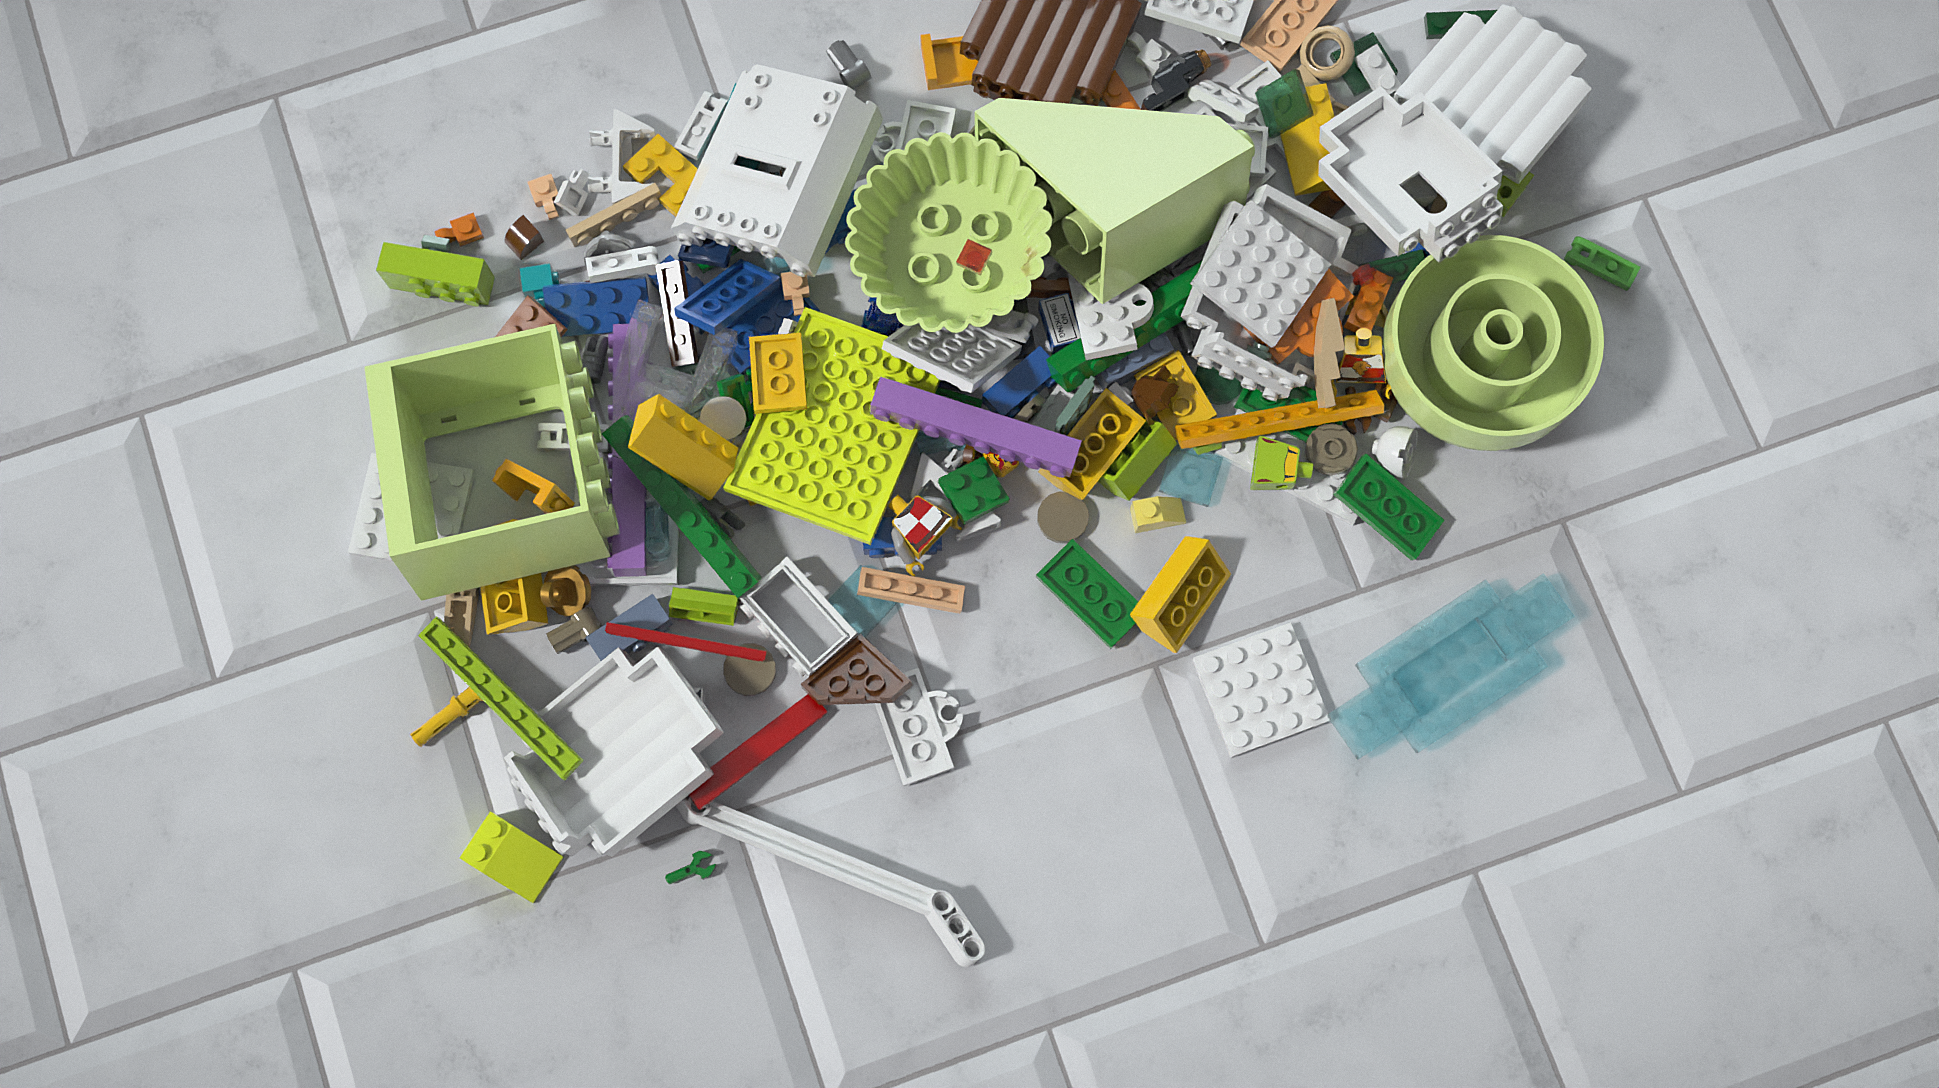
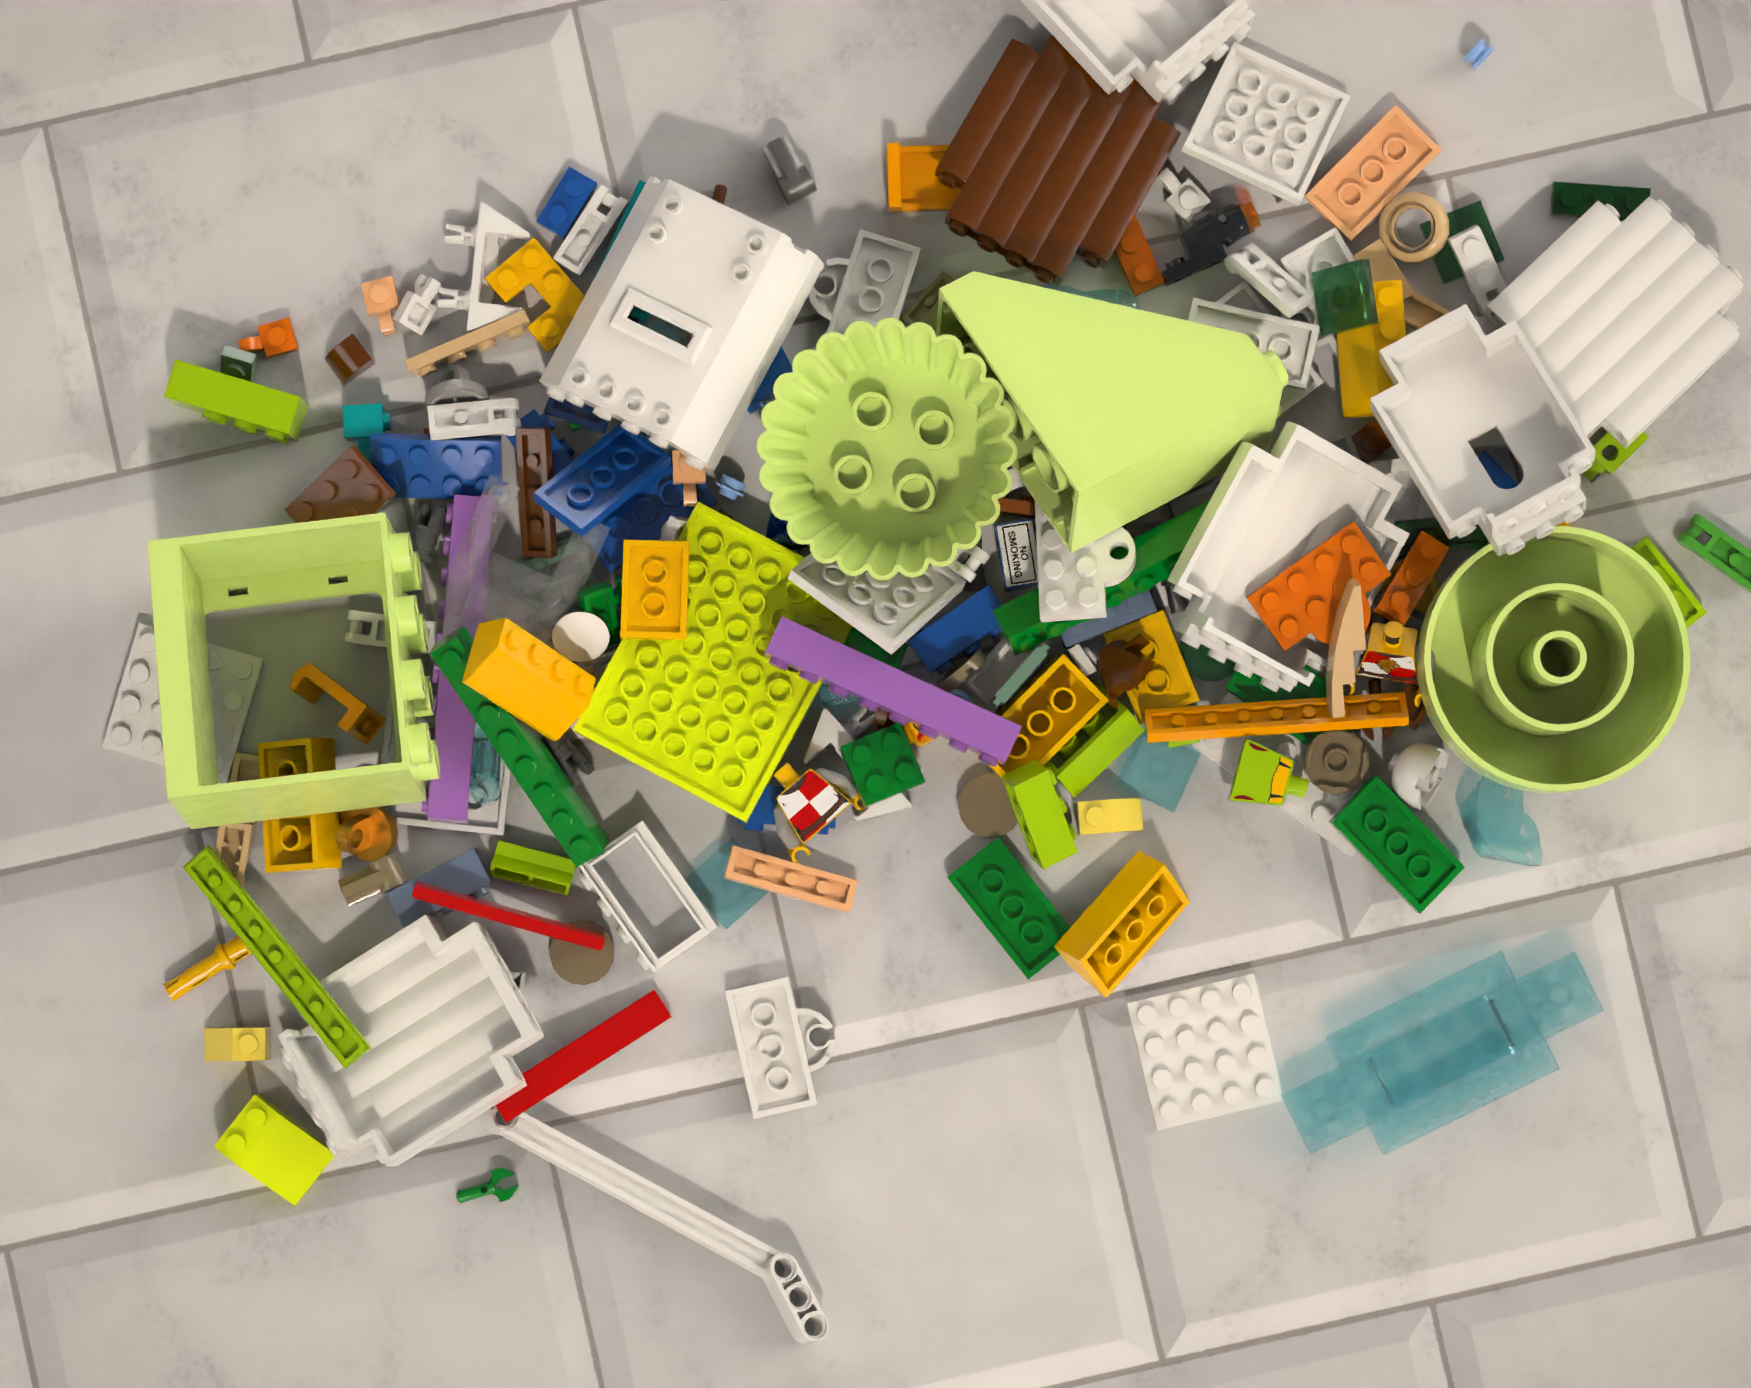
camera: 10 degrees right, 10 degrees up
(475, 774) = (237, 1044): none -> light yellow slope
(680, 107) = (567, 203): none -> blue plate
(829, 299) = (730, 487): none -> light blue plate
(857, 676) = (712, 981): plate -> none
(974, 257) = (914, 490): clear red plate -> none
(1104, 513) = (1040, 813): none -> lime brick
(1259, 350) = (1259, 636): sand green plate -> none
(1260, 273) = (1274, 540): white plate -> none
(1363, 275) = (1409, 547): clear red plate -> none
(1462, 485) = (1496, 822): none -> clear light blue piece

